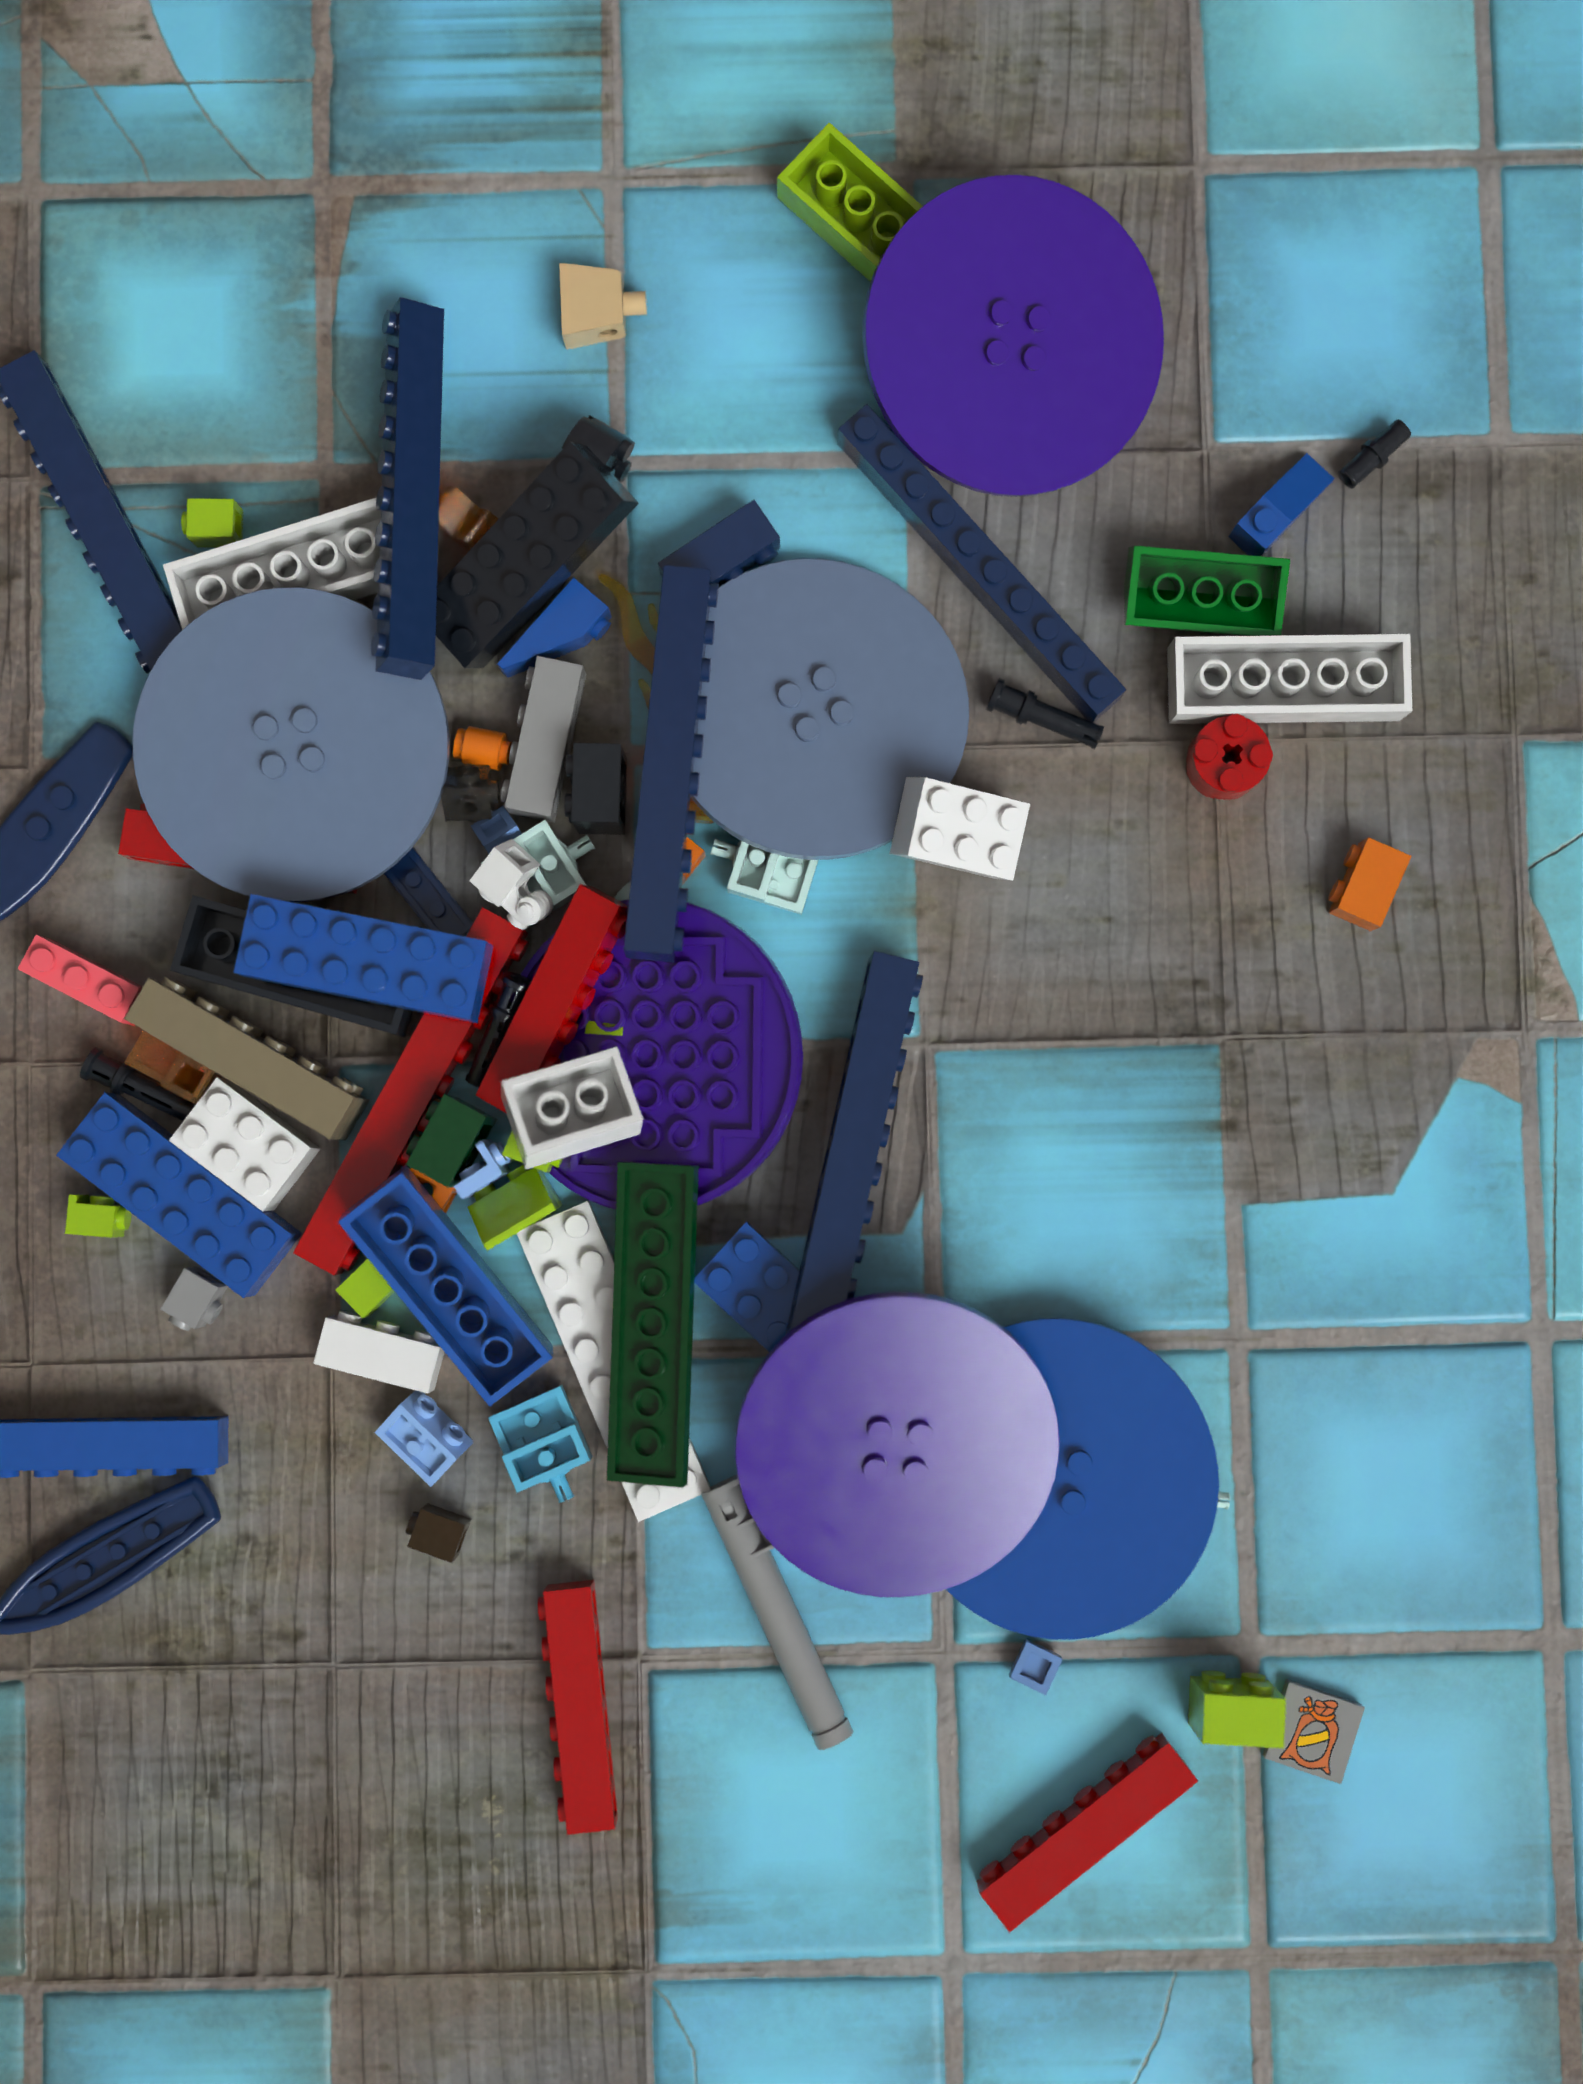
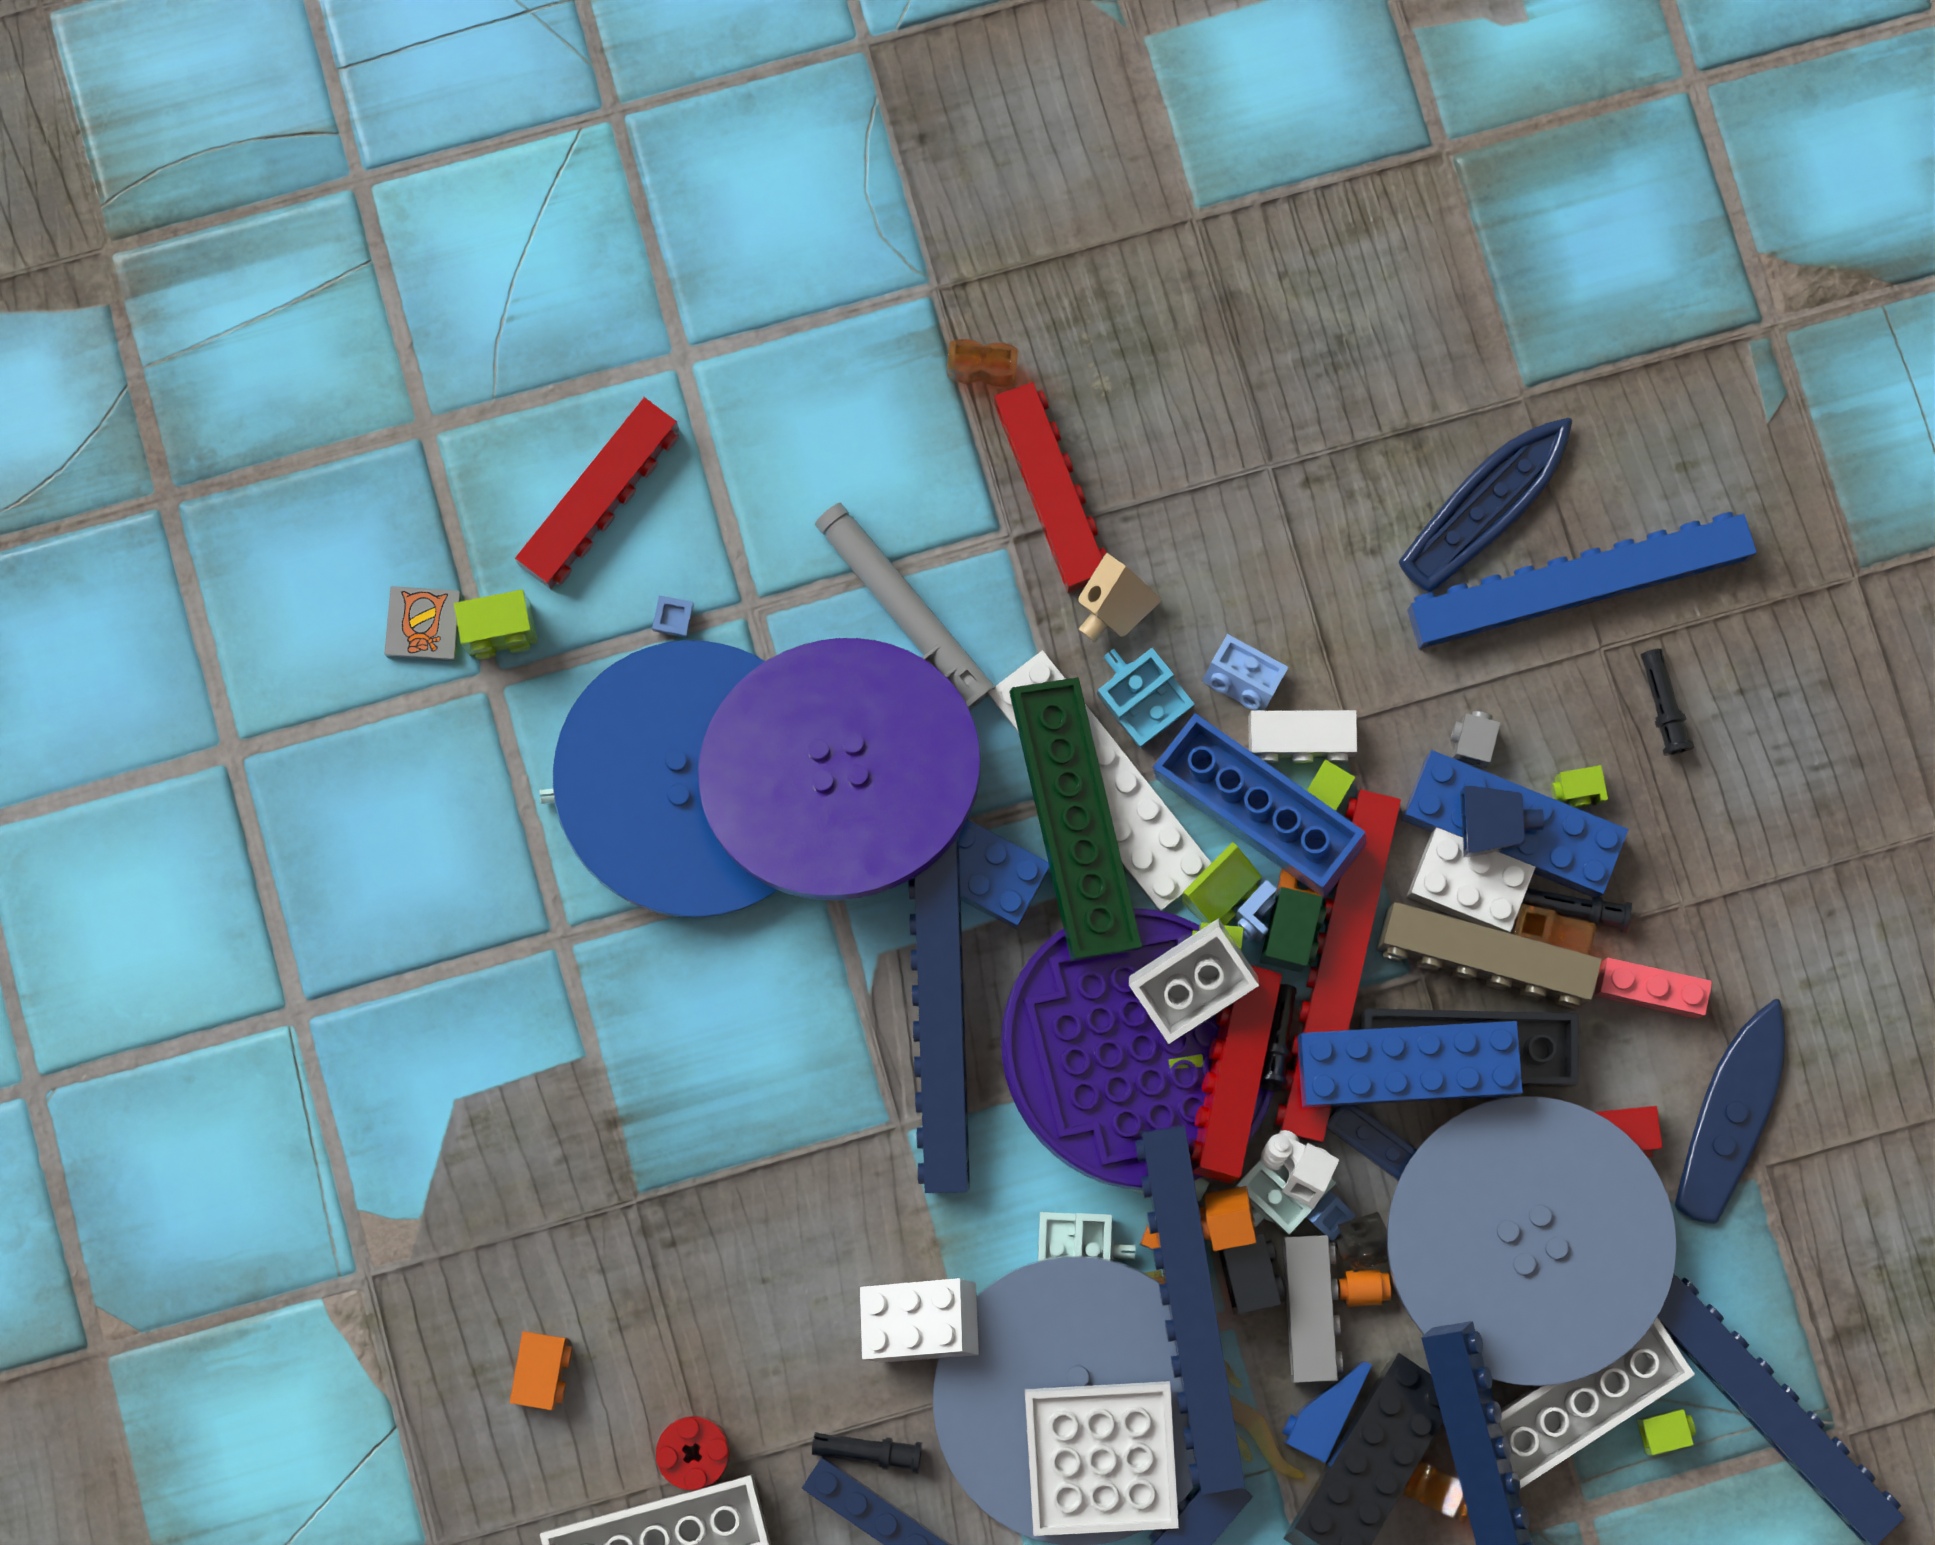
camera: 160 degrees right, 5 degrees down
(194, 1200) = (1495, 820): none -> dark blue torso
(437, 1532) = (1211, 598): dark brown brick -> none
(542, 1558) = (1115, 599): none -> tan torso
(604, 846) = (1228, 1218): none -> orange brick
(610, 1869) = (973, 362): none -> clear orange brick
(805, 638) = (1101, 1458): none -> white plate

